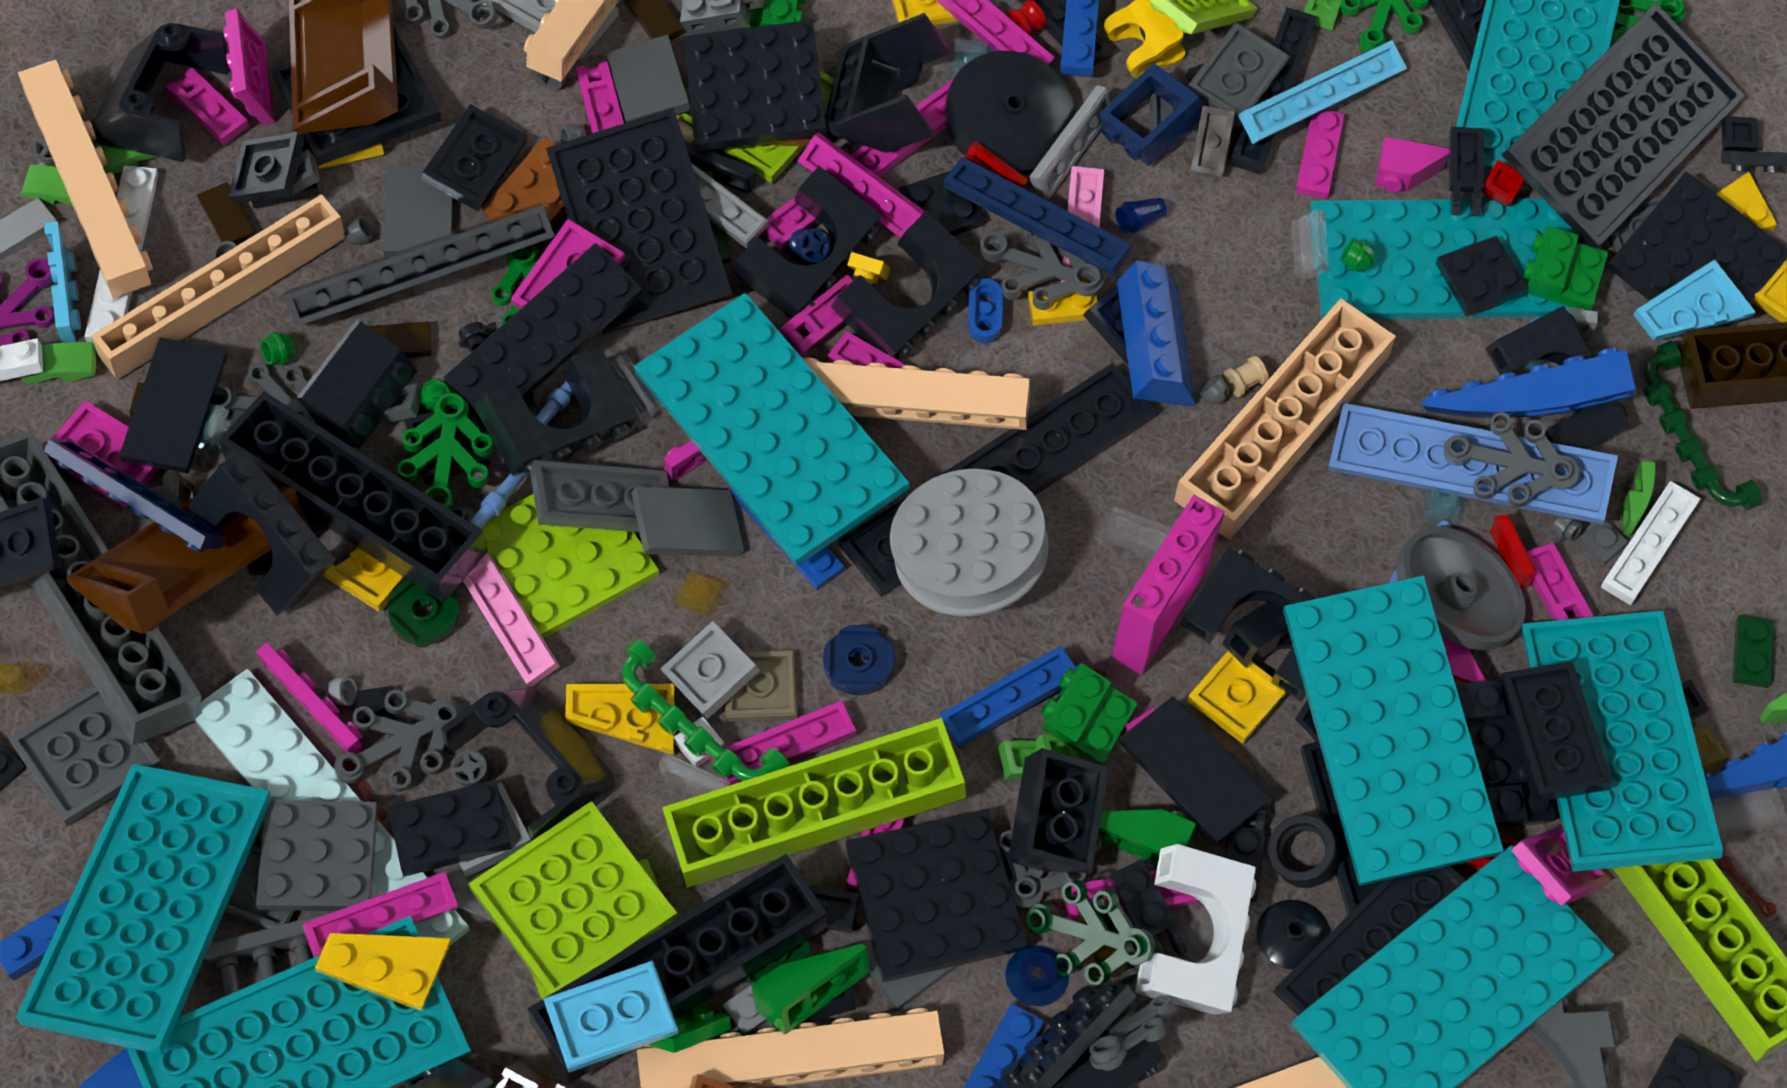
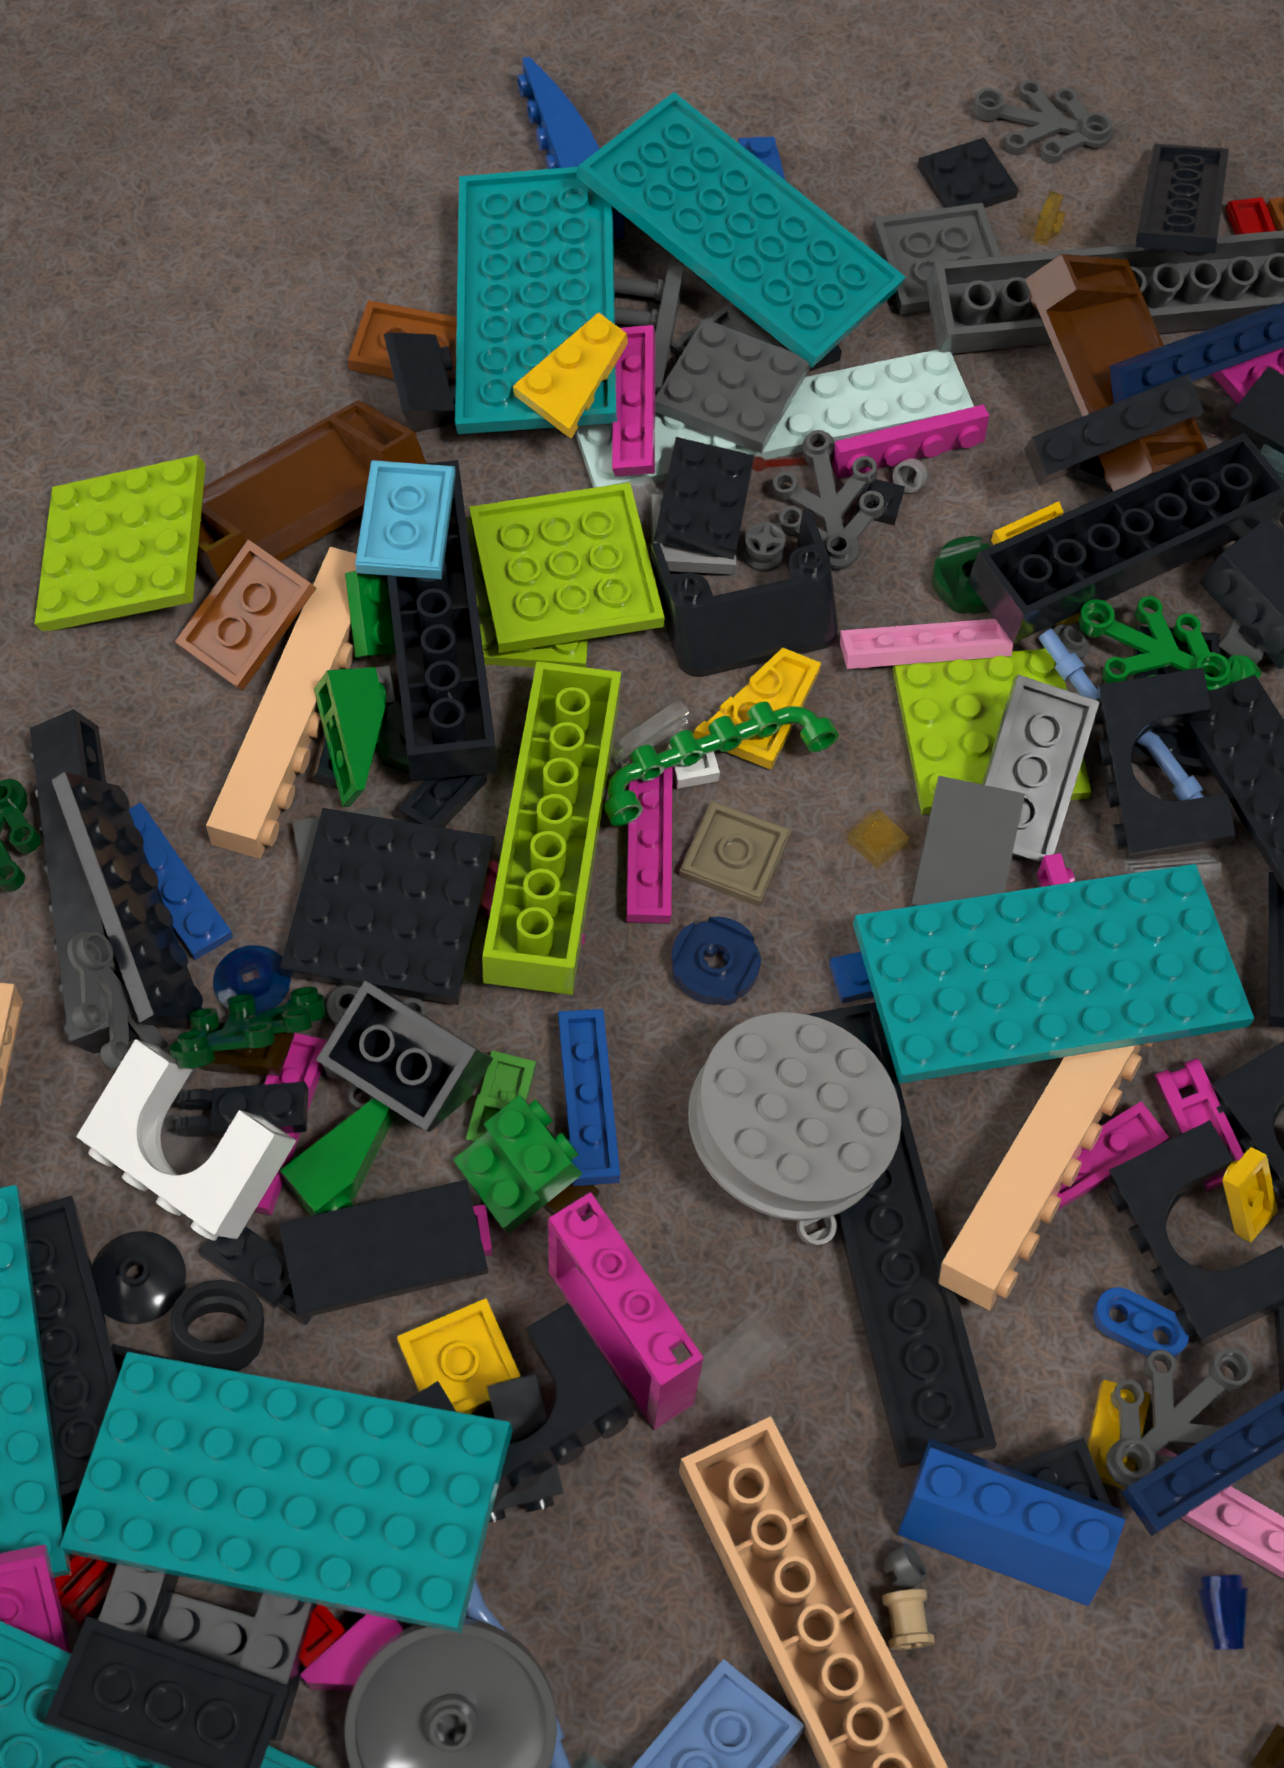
camera: 115 degrees right, 0 degrees up
(710, 669) = (771, 800): light grey plate -> none

